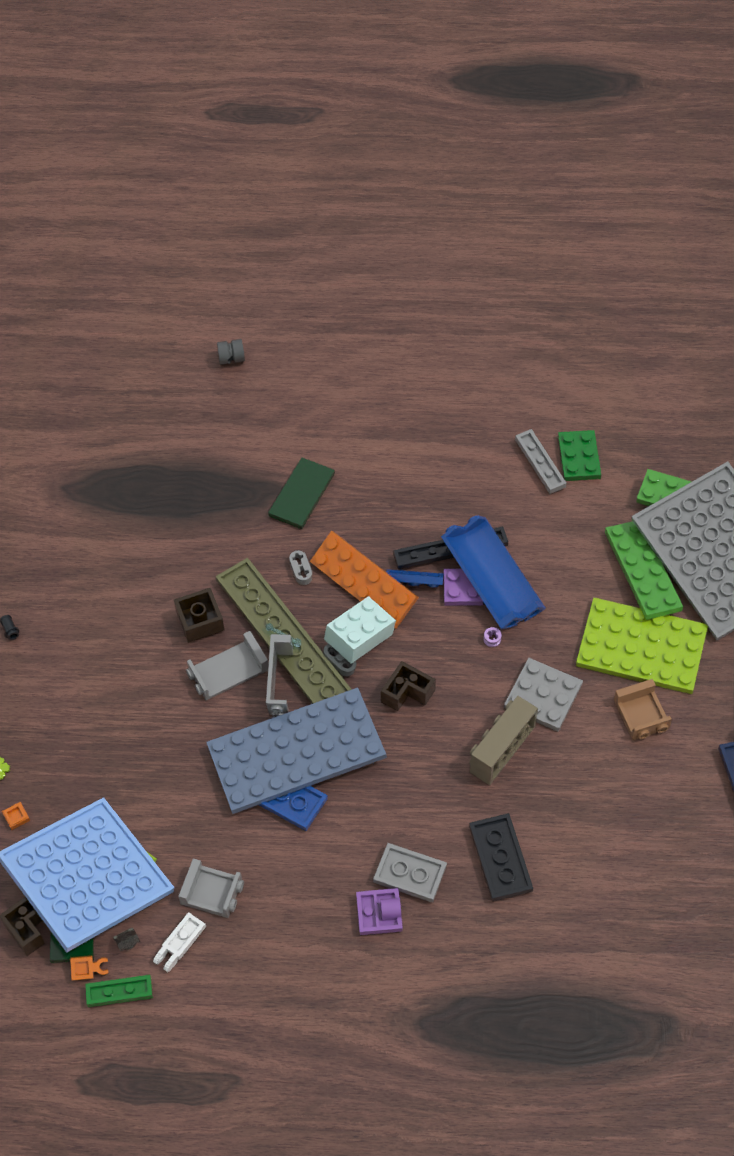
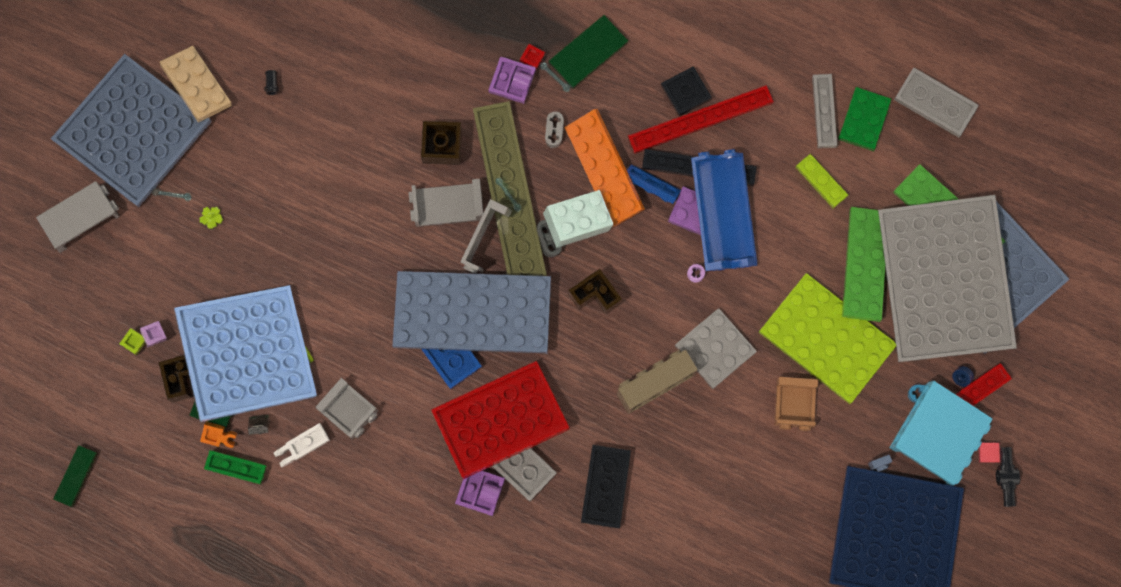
camera: 20 degrees right, 20 degrees up
(15, 816) = (210, 269): orange tile -> none
(241, 540) = (512, 80): none -> medium lavender plate
(251, 514) = (532, 56): none -> red plate
(295, 529) = (566, 87): none -> clear light blue hinge
(368, 836) = (500, 420): none -> red plate
(407, 491) = (686, 91): none -> black plate
(431, 510) = (700, 119): none -> red tile
(567, 518) = (821, 181): none -> lime plate
(635, 418) = (936, 102): none -> light grey plate

